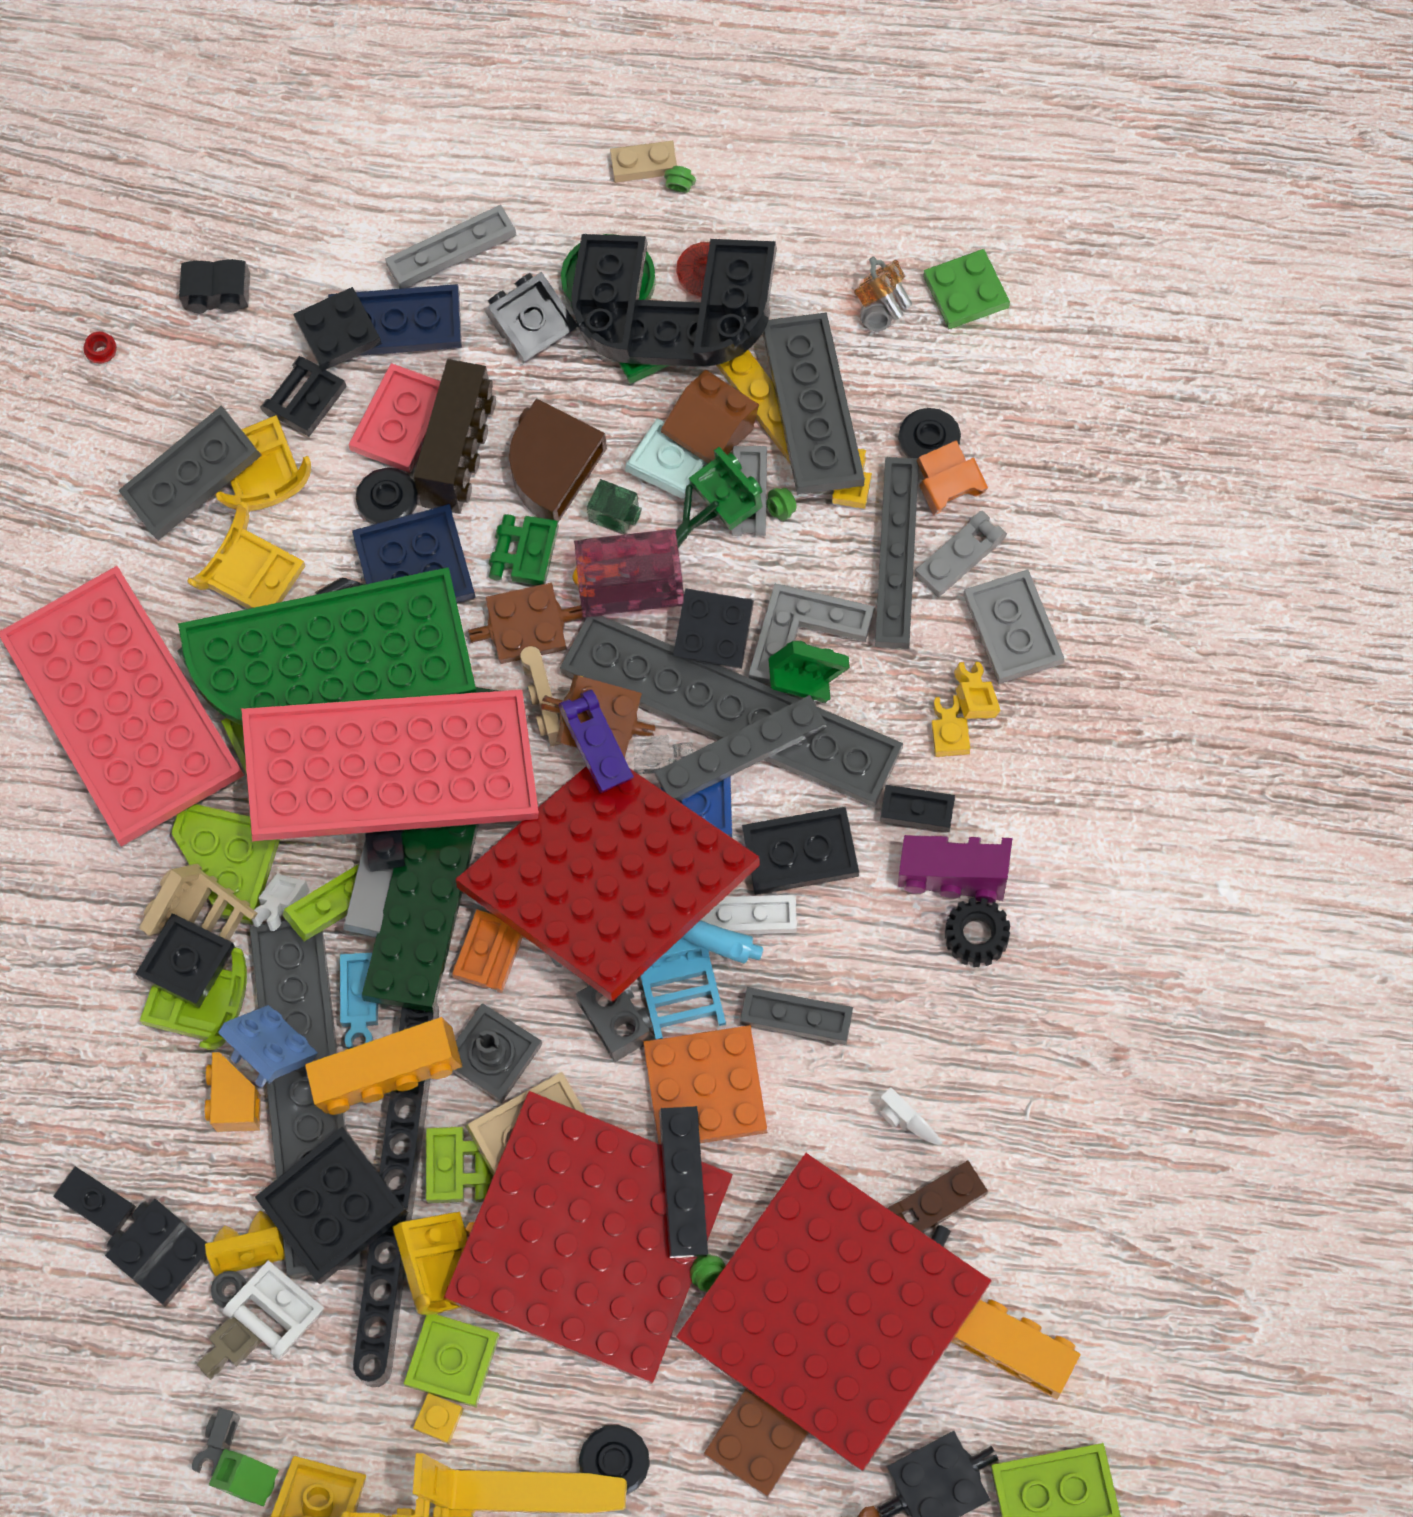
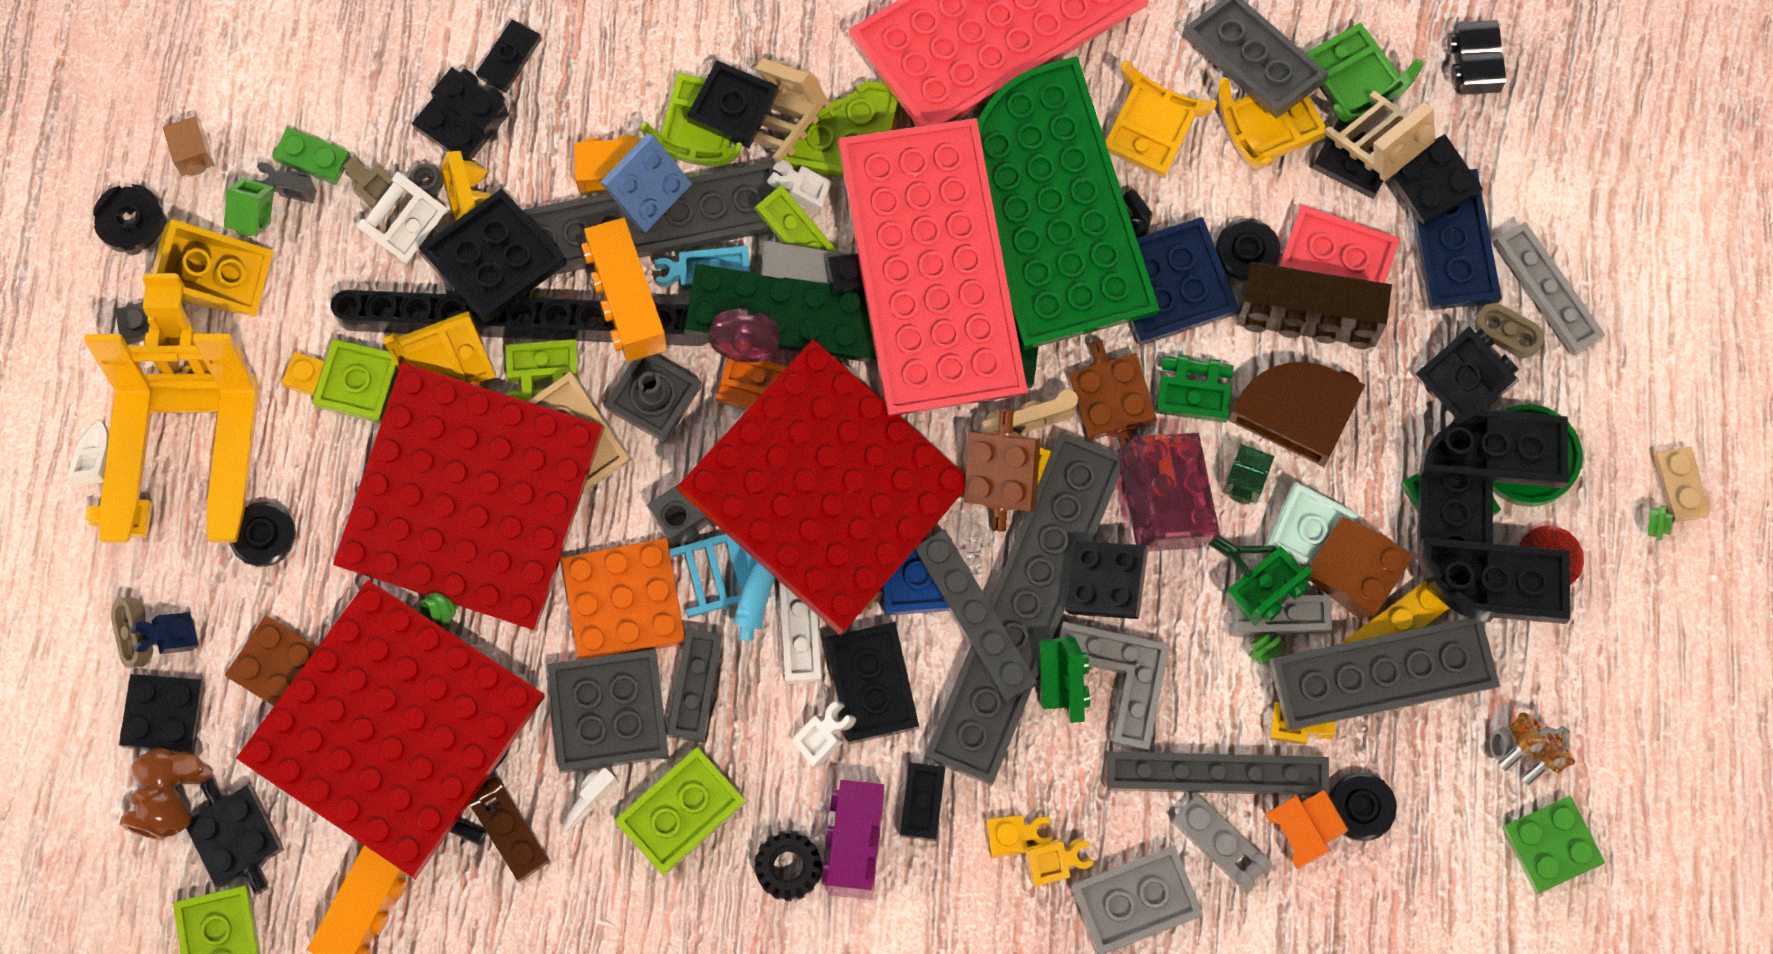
camera: 85 degrees right, 5 degrees up
(186, 1416) = (311, 156): none -> bright green plate
(217, 382) = (1356, 70): none -> bright green piece
(307, 349) = (1393, 140): none -> tan plate
(445, 947) = (744, 336): none -> clear pink plate
(485, 283) = (1510, 328): none -> dark tan plate
(596, 742) = (965, 464): dark purple plate -> none
(683, 1182) = (517, 578): black plate -> none
(819, 1100) = (608, 711): none -> dark grey plate
(853, 897) = (819, 736): none -> white plate
(922, 1032) = (680, 811): none -> lime plate

